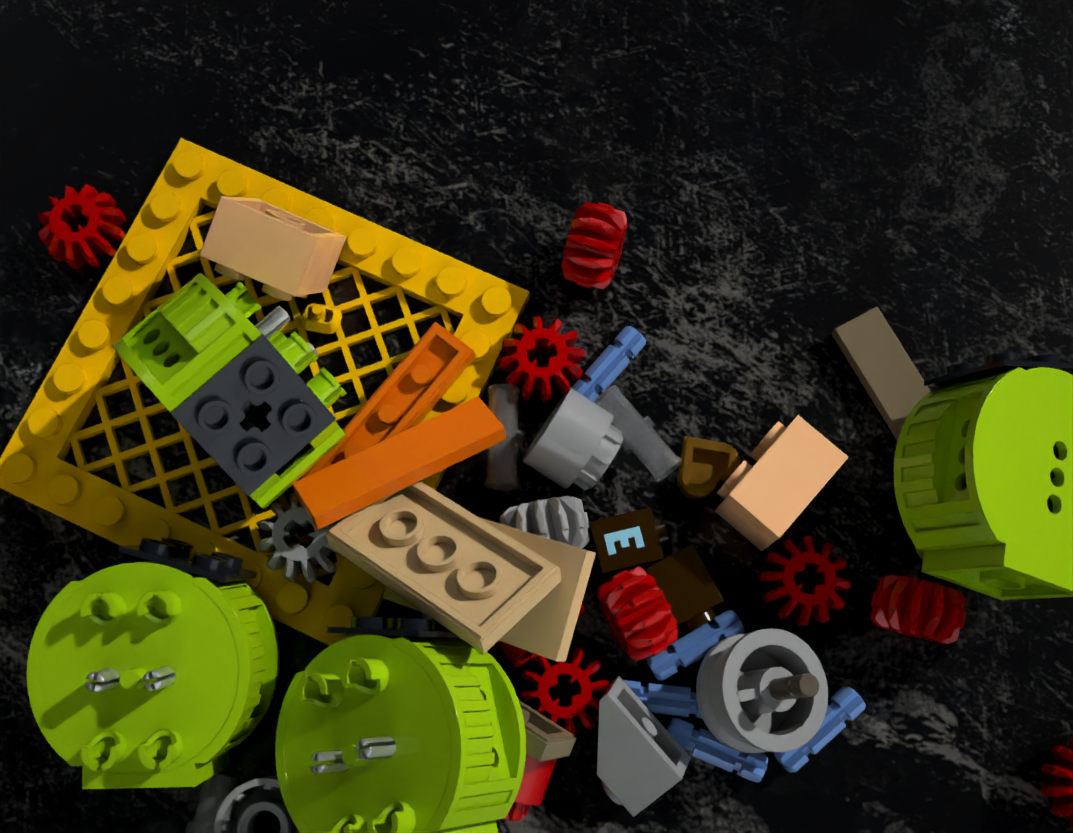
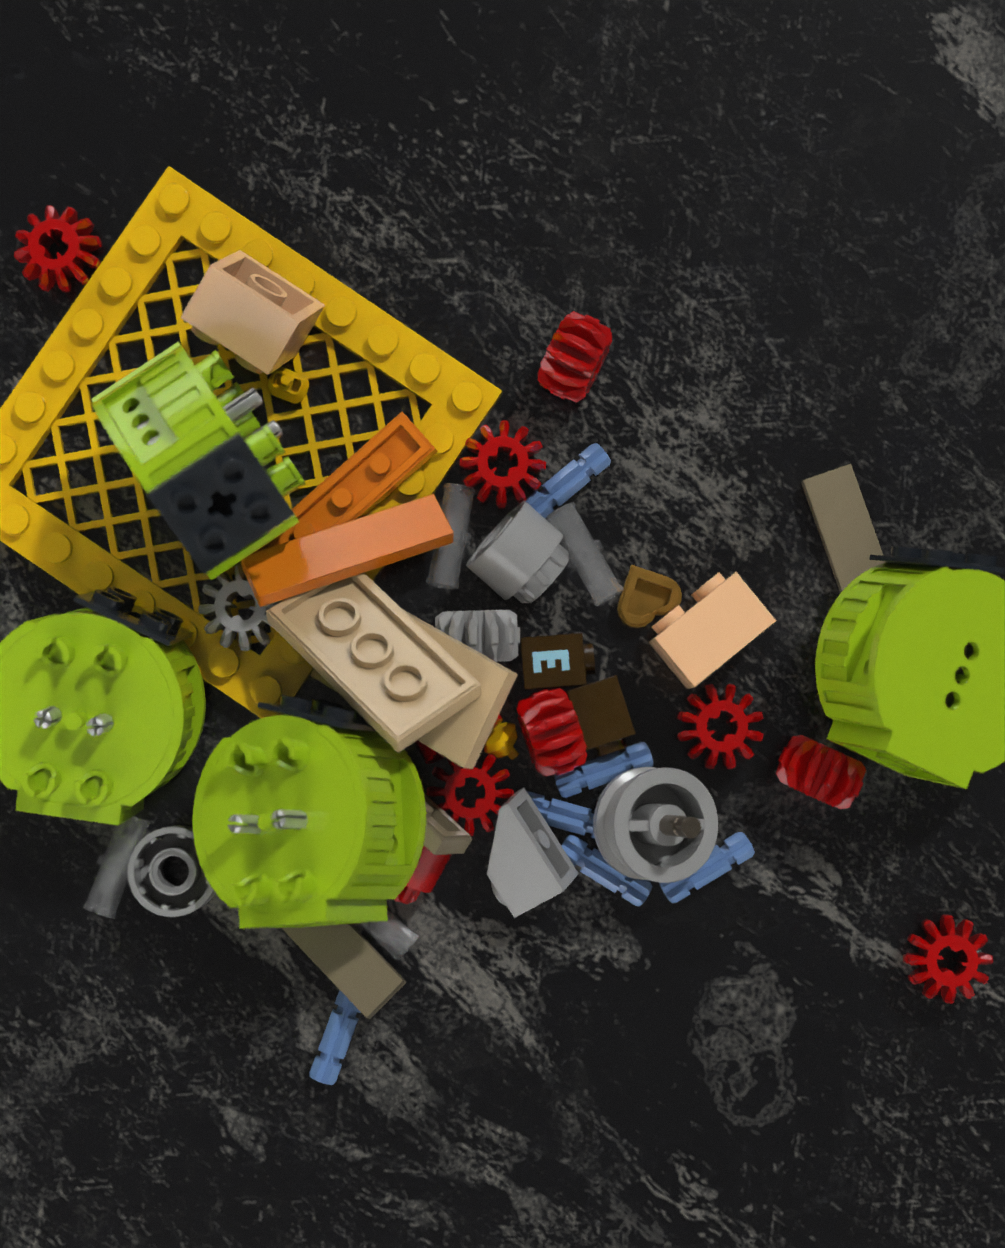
camera: 10 degrees right, 10 degrees up
(587, 632) = (501, 741): none -> yellow rock

